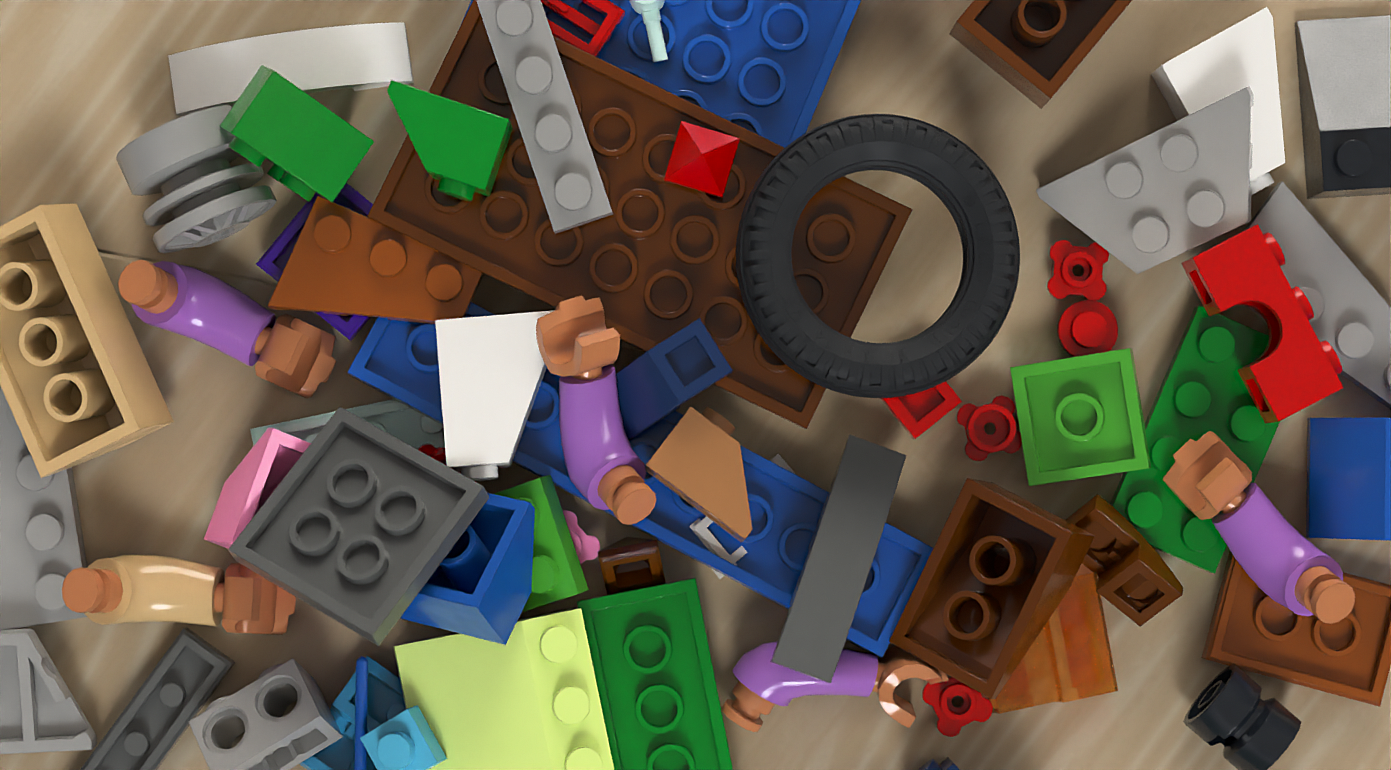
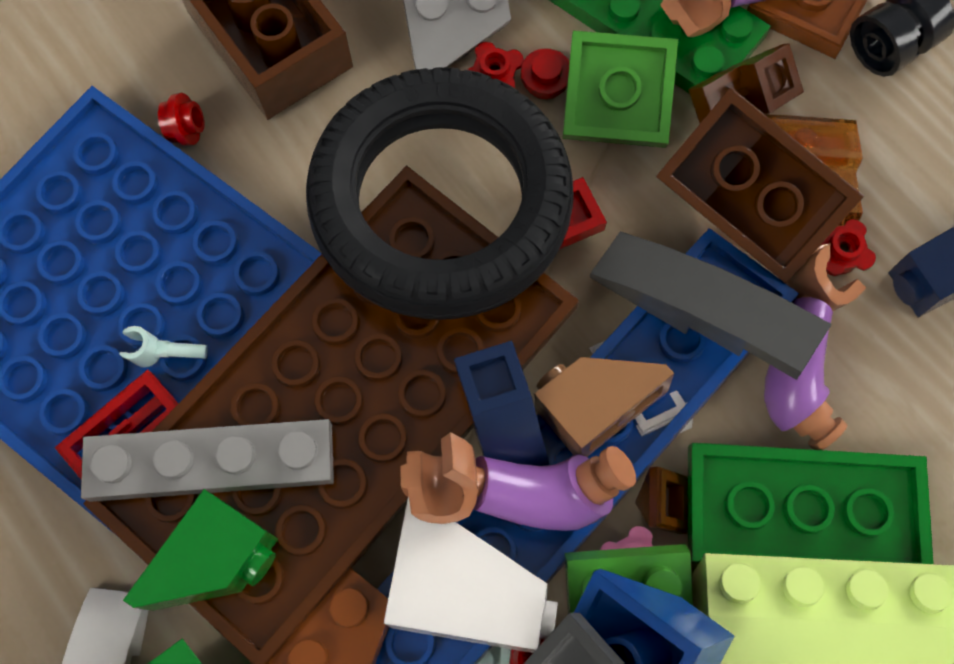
camera: 70 degrees left, 15 degrees down
(701, 159) = (305, 329): red slope -> none
(999, 413) = (614, 153): red plate -> none

